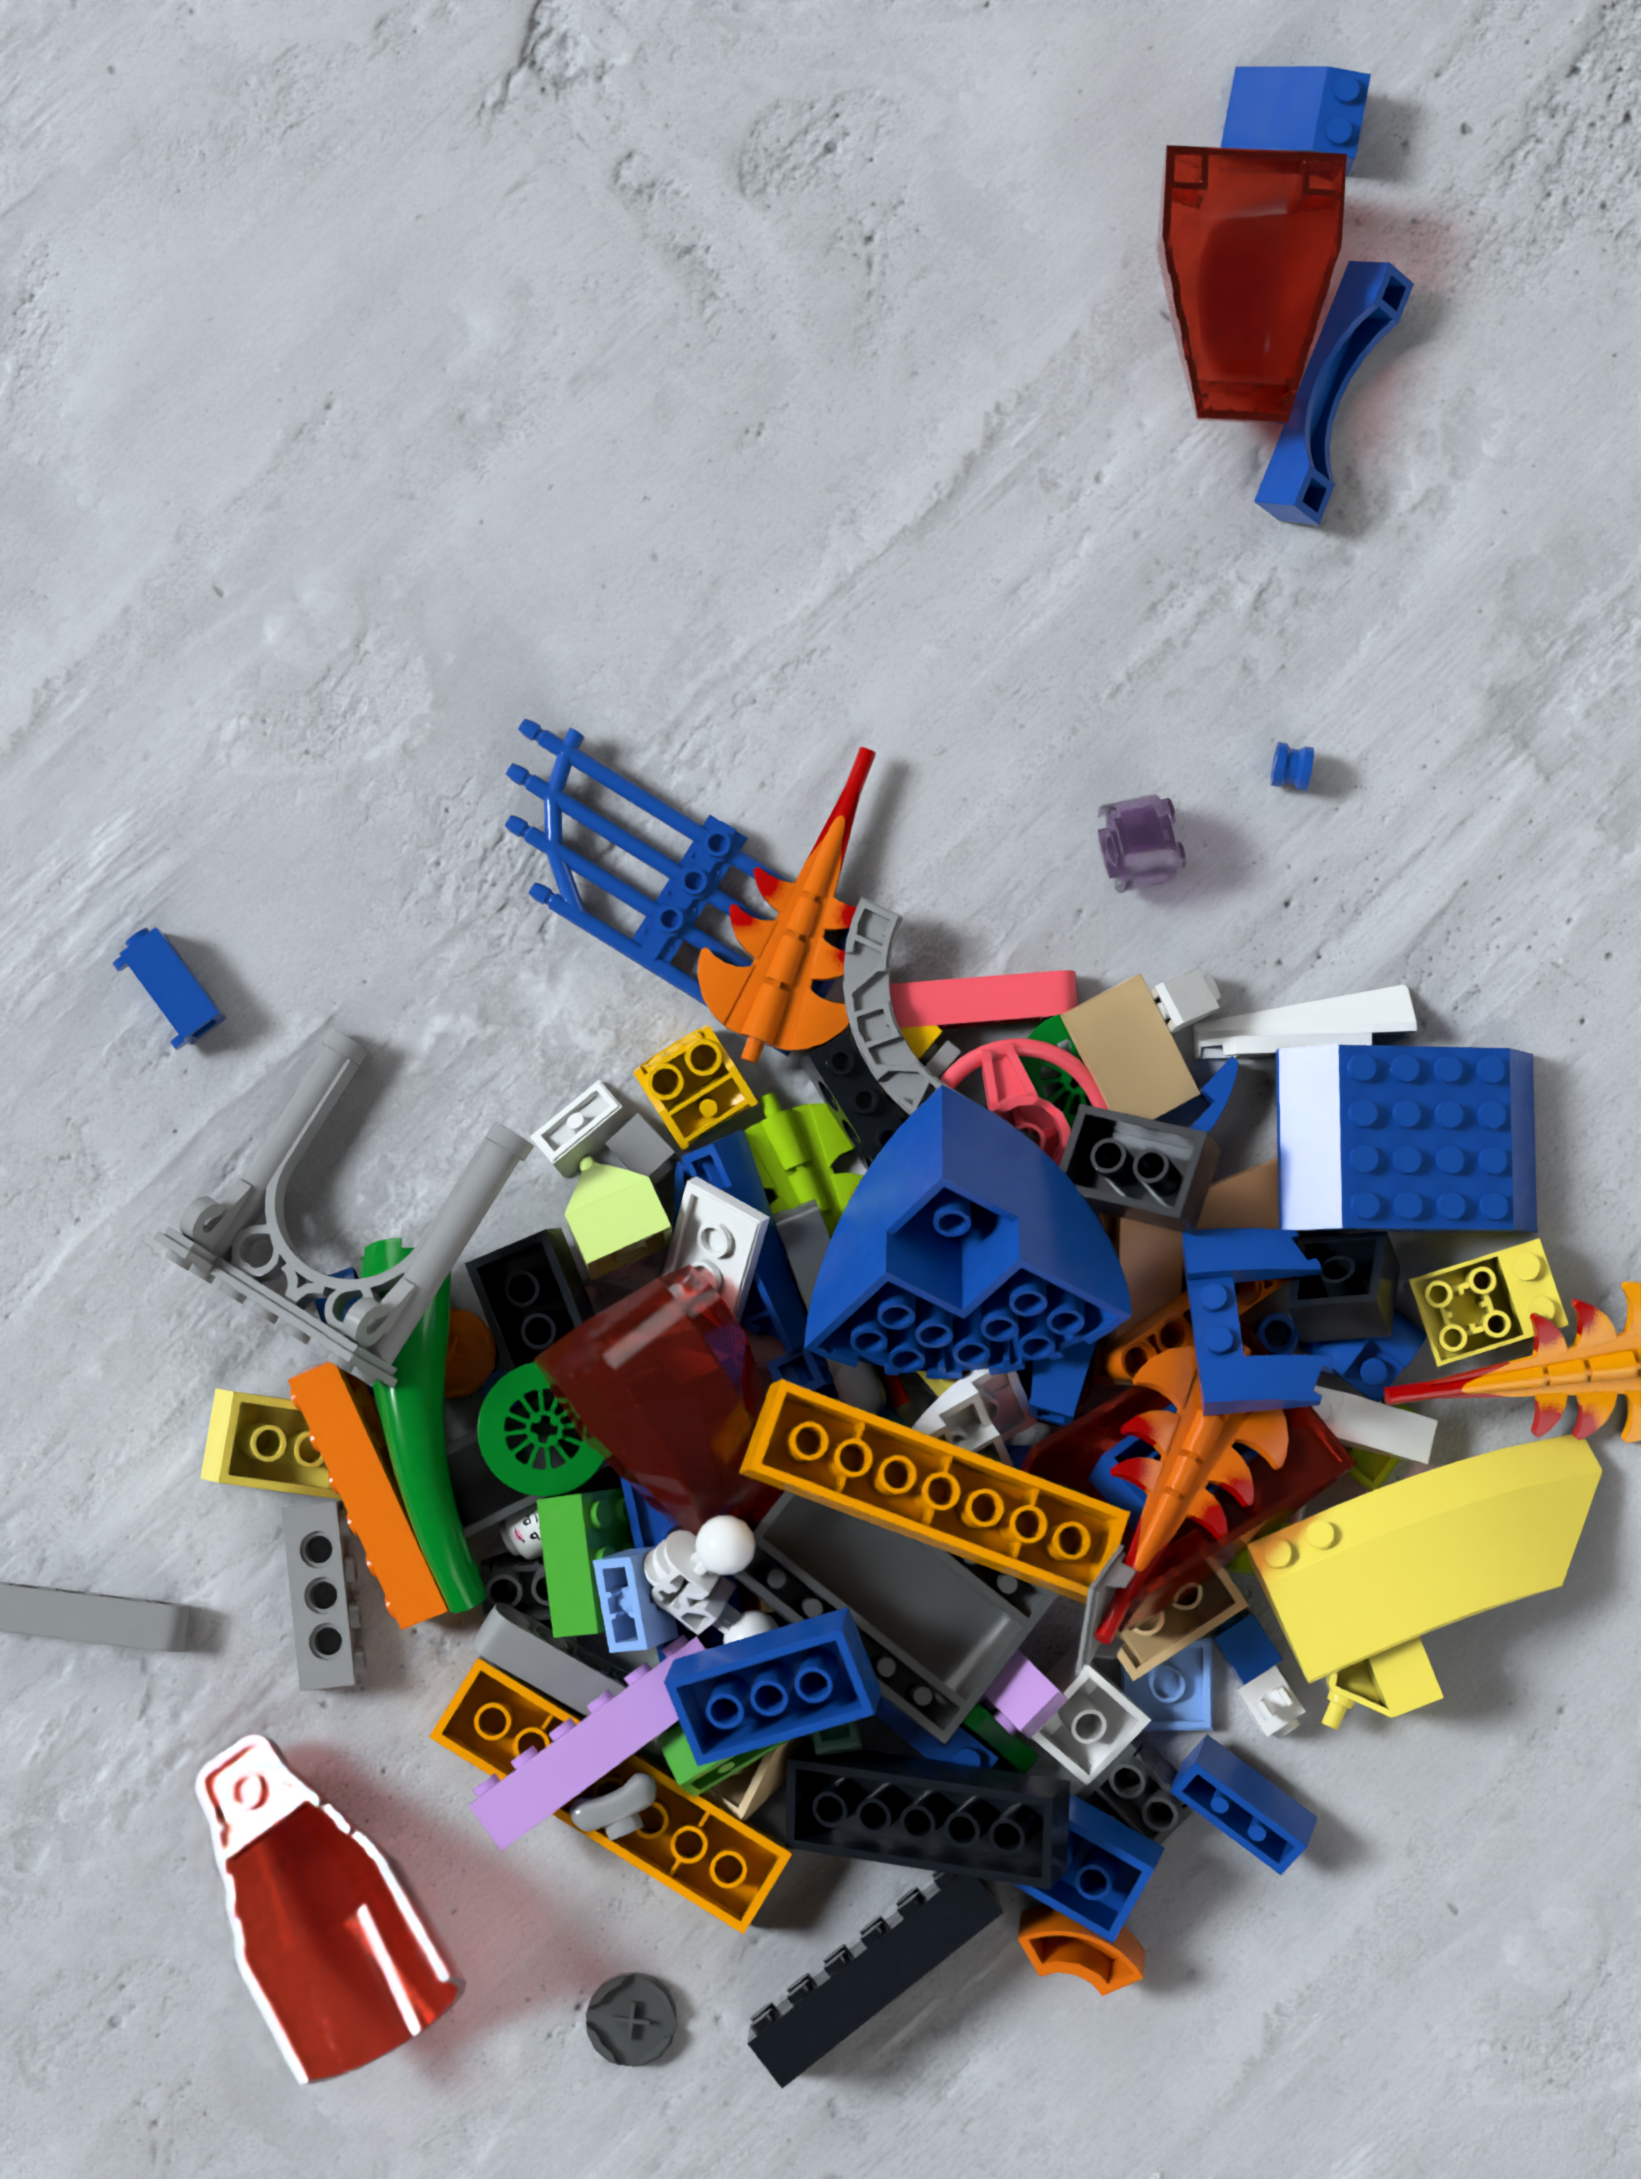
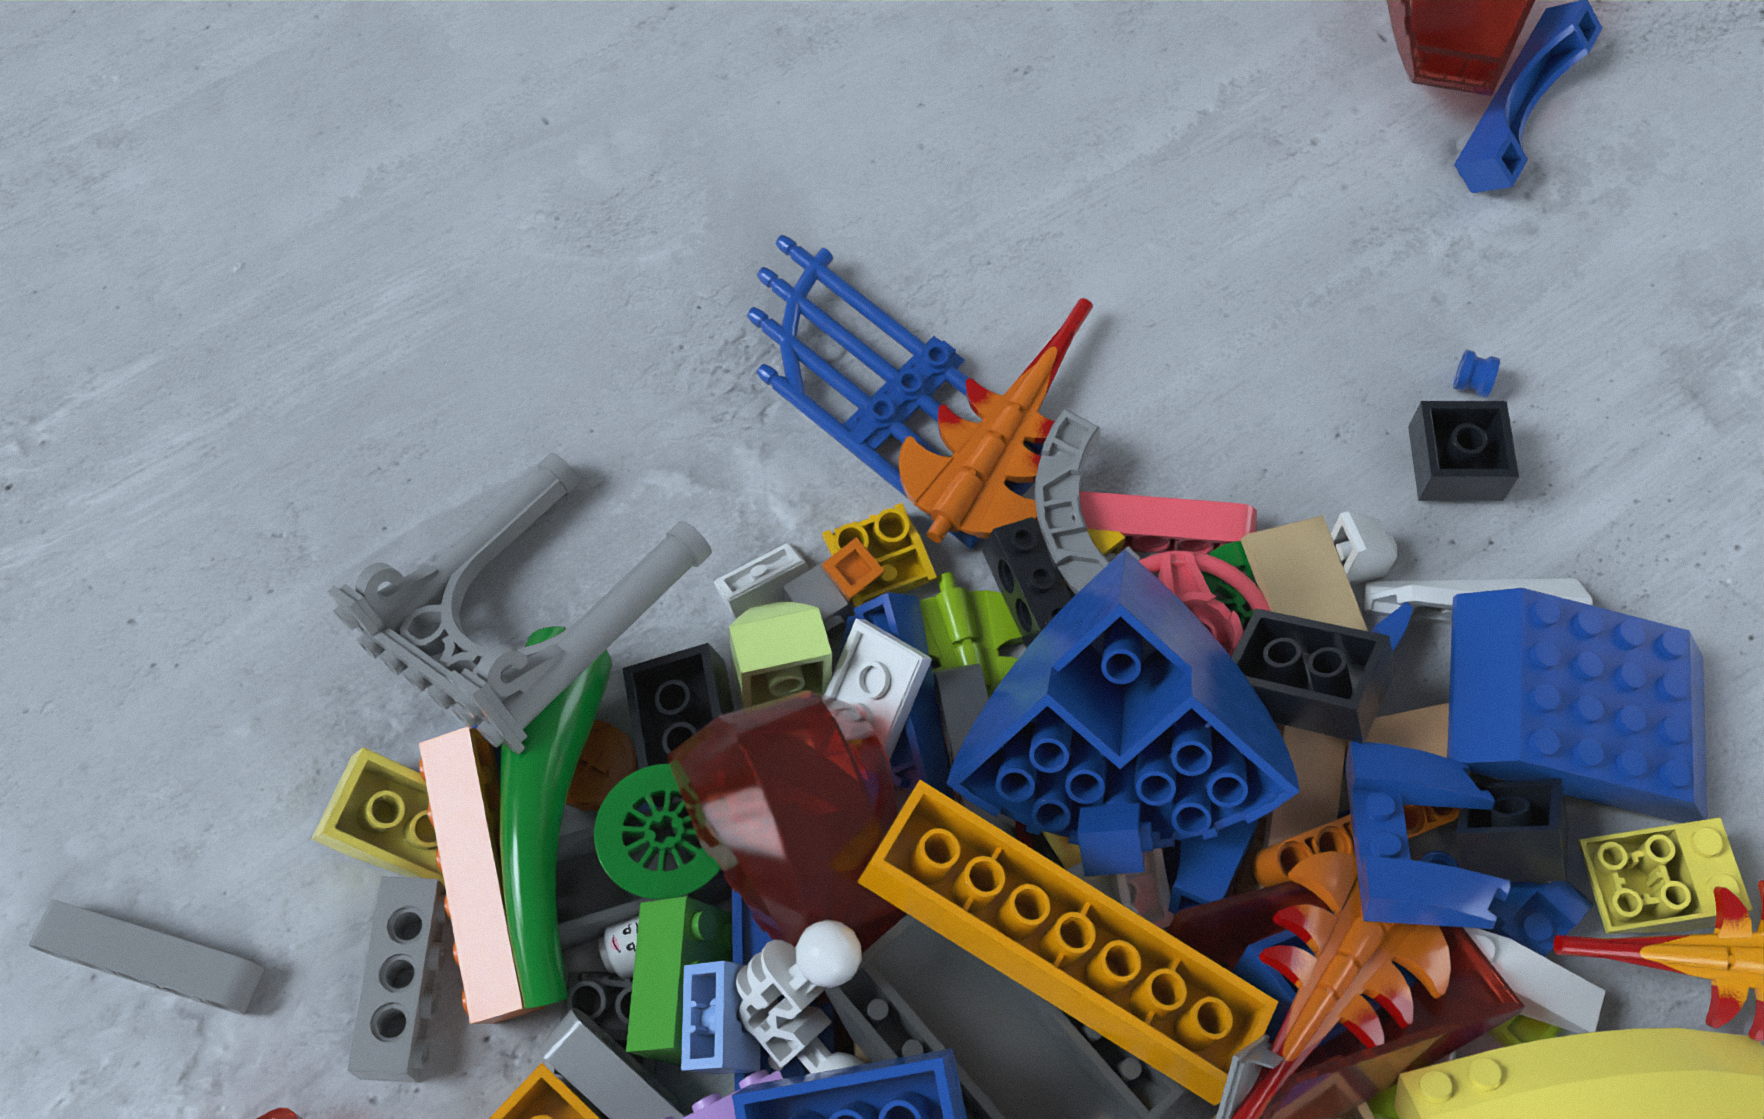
camera: 10 degrees right, 20 degrees down
(170, 985) = (415, 401): blue brick -> none
(673, 1118) = (852, 569): none -> orange plate
(967, 1378) = (1113, 839): none -> blue brick
(1140, 842) = (1331, 408): clear purple brick -> none
(1280, 868) = (1463, 451): none -> black brick

